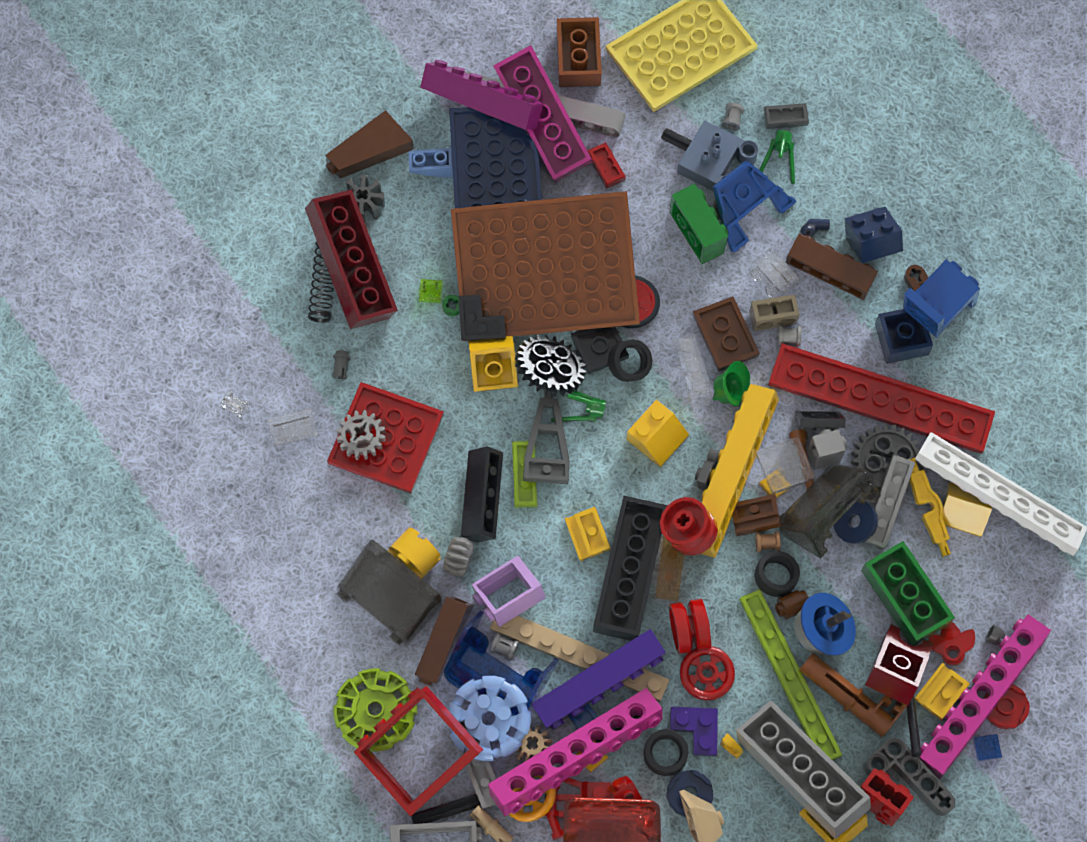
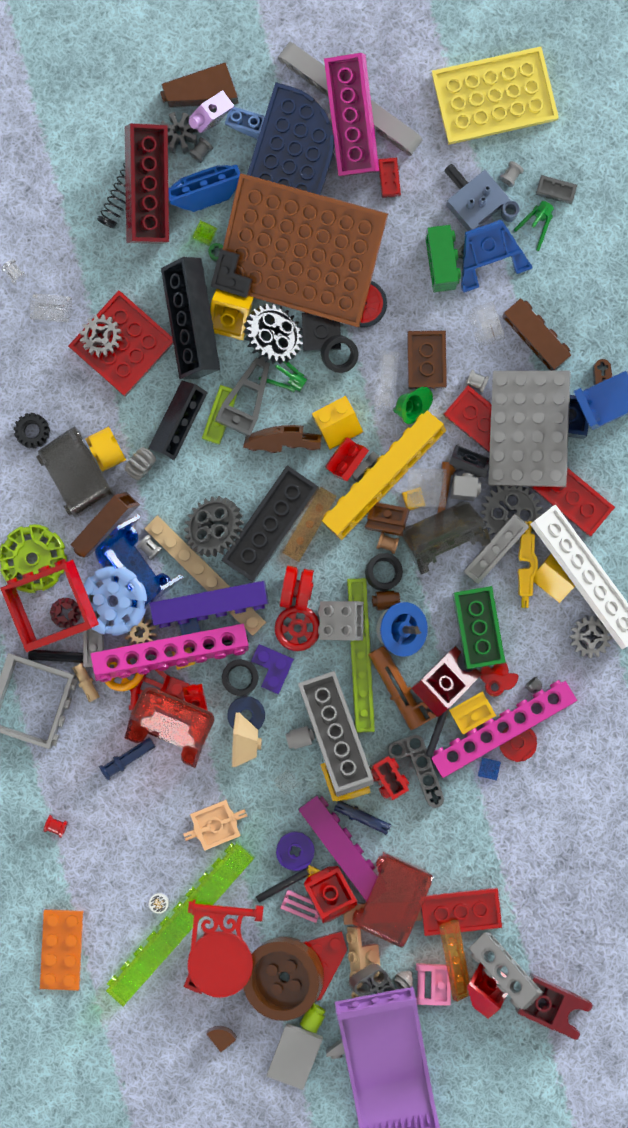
camera: 25 degrees right, 15 degrees up
(314, 556) = (24, 422): none -> black tyre
(341, 363) = (109, 269): dark grey pin -> none
(387, 170) = (204, 119): none -> lavender torso
(392, 207) = (200, 149): none -> dark grey bush
(415, 242) = (204, 188): none -> blue wedge
(436, 768) = (62, 621): none -> dark red gear
(453, 381) = (190, 318): none -> black brick
(481, 94) = (305, 80): magenta brick -> none
(501, 577) = (162, 493): lavender window -> none
(570, 593) = (213, 526): none -> dark grey gear
(578, 52) = (406, 68): dark orange brick -> none
(587, 534) = (249, 482): yellow plate -> none
(596, 474) = (275, 437): none -> reddish brown slope
(684, 468) = (346, 459): none -> red bracket
(688, 526) = (326, 510): red wheel -> none
(728, 742) = (292, 692): yellow tile -> none
(753, 643) = (341, 620): none -> light grey brick
(762, 794) = (300, 737): none -> light grey brick
(774, 312) = (472, 357): dark tan brick -> none
(813, 225) = (536, 294): dark blue arm -> none
(864, 530) = (467, 564): dark blue tile -> none
(869, 361) = (529, 428): none -> light grey plate
(873, 234) = (581, 322): dark blue brick -> none
(1036, 570) = (591, 627): none -> light grey gear

